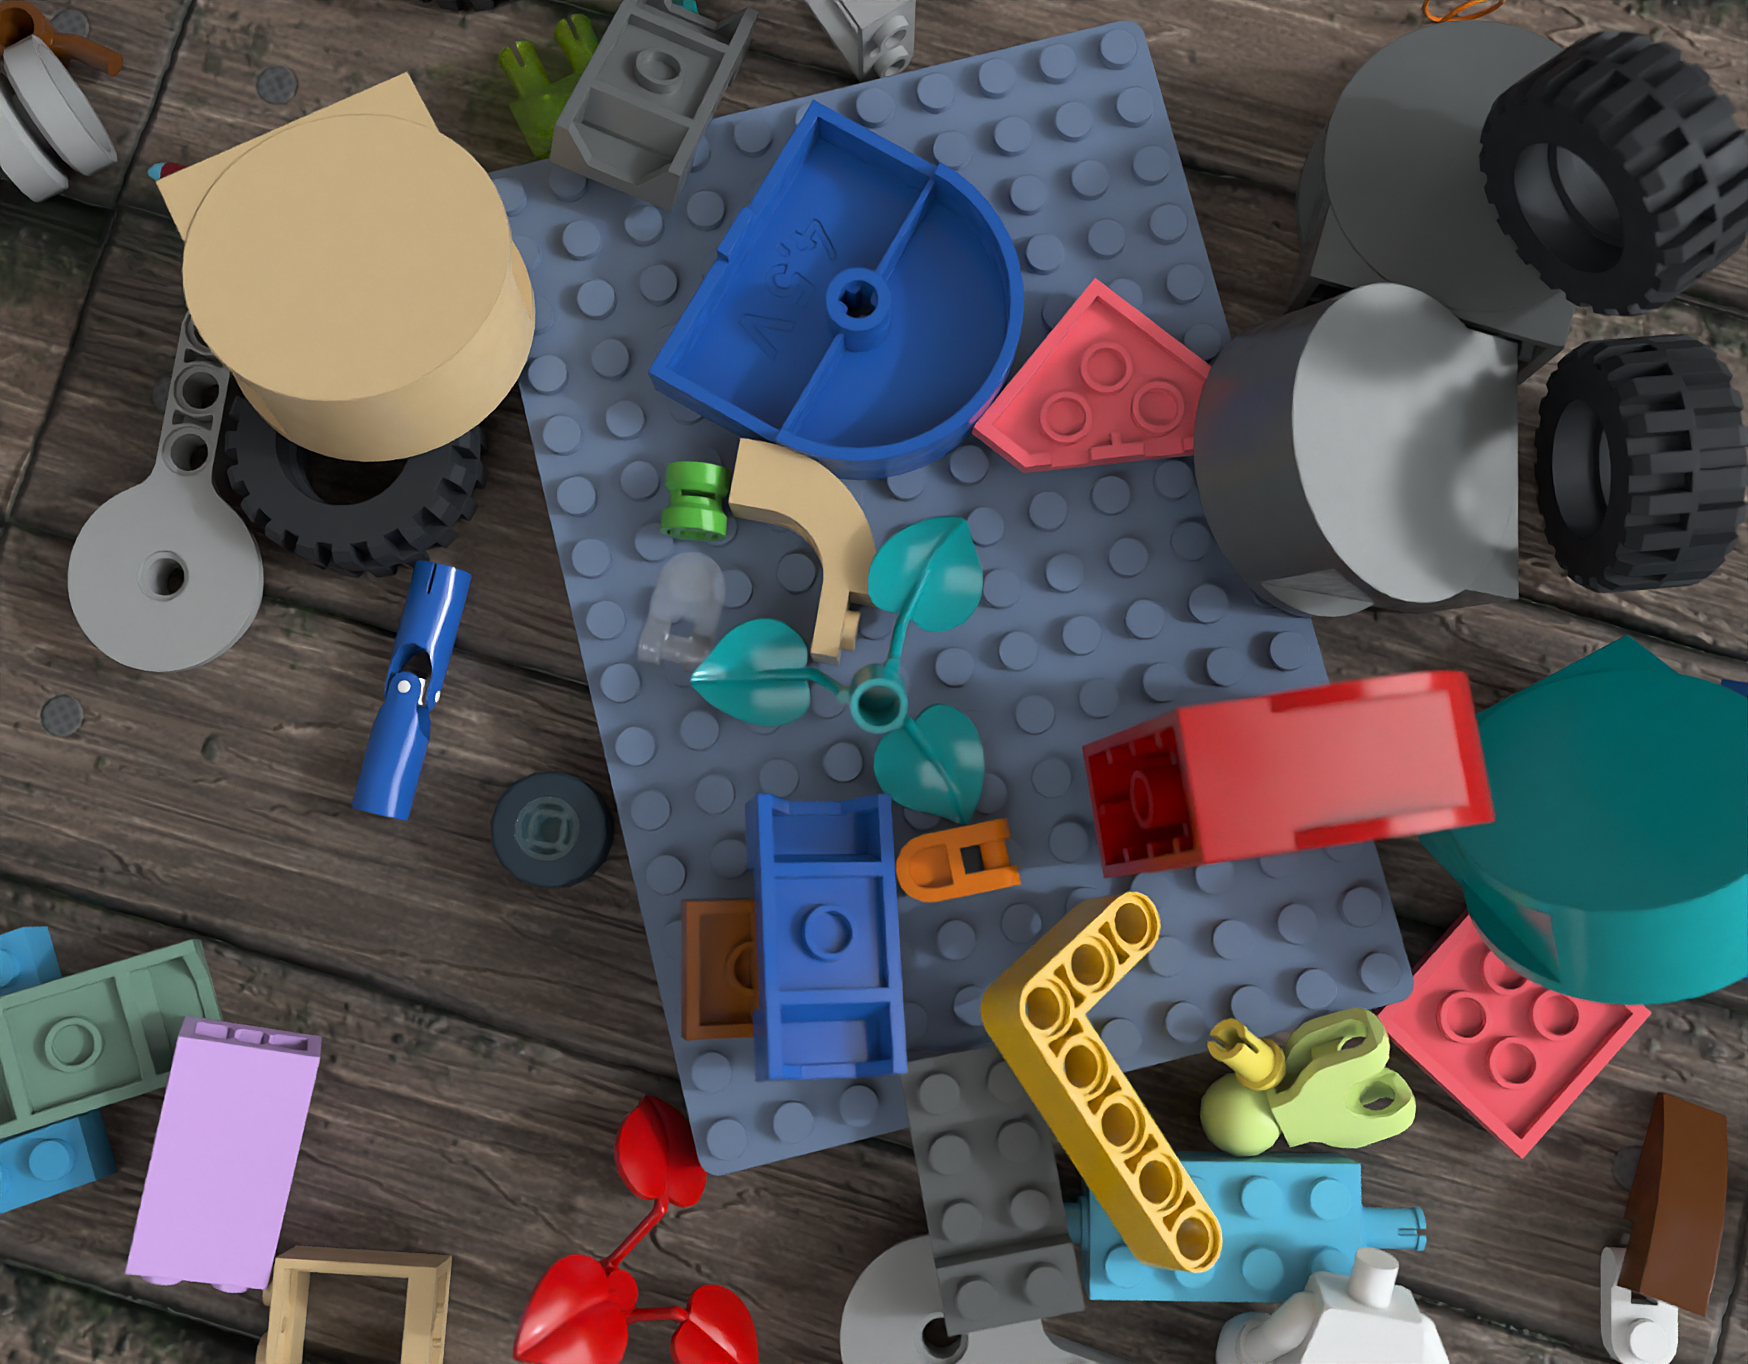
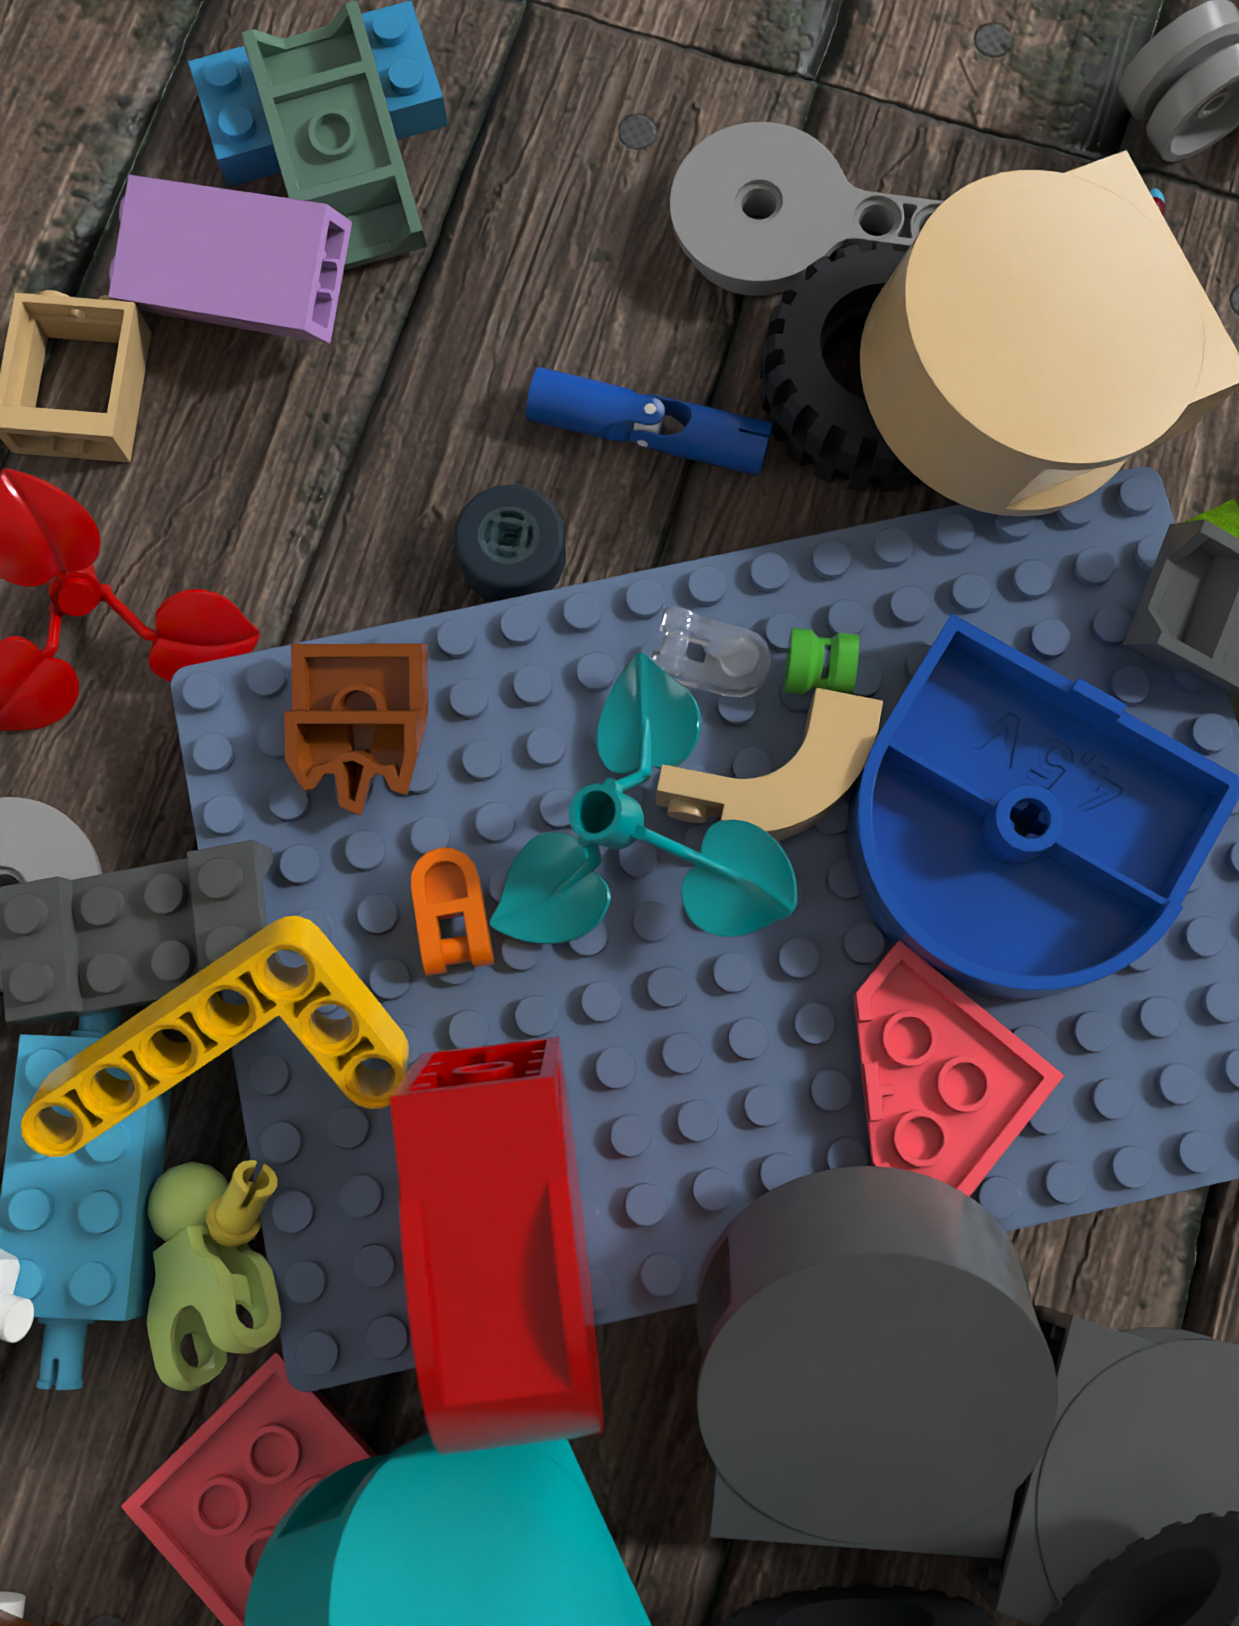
camera: 90 degrees right, 5 degrees down
(825, 939) = (378, 772): blue piece -> none

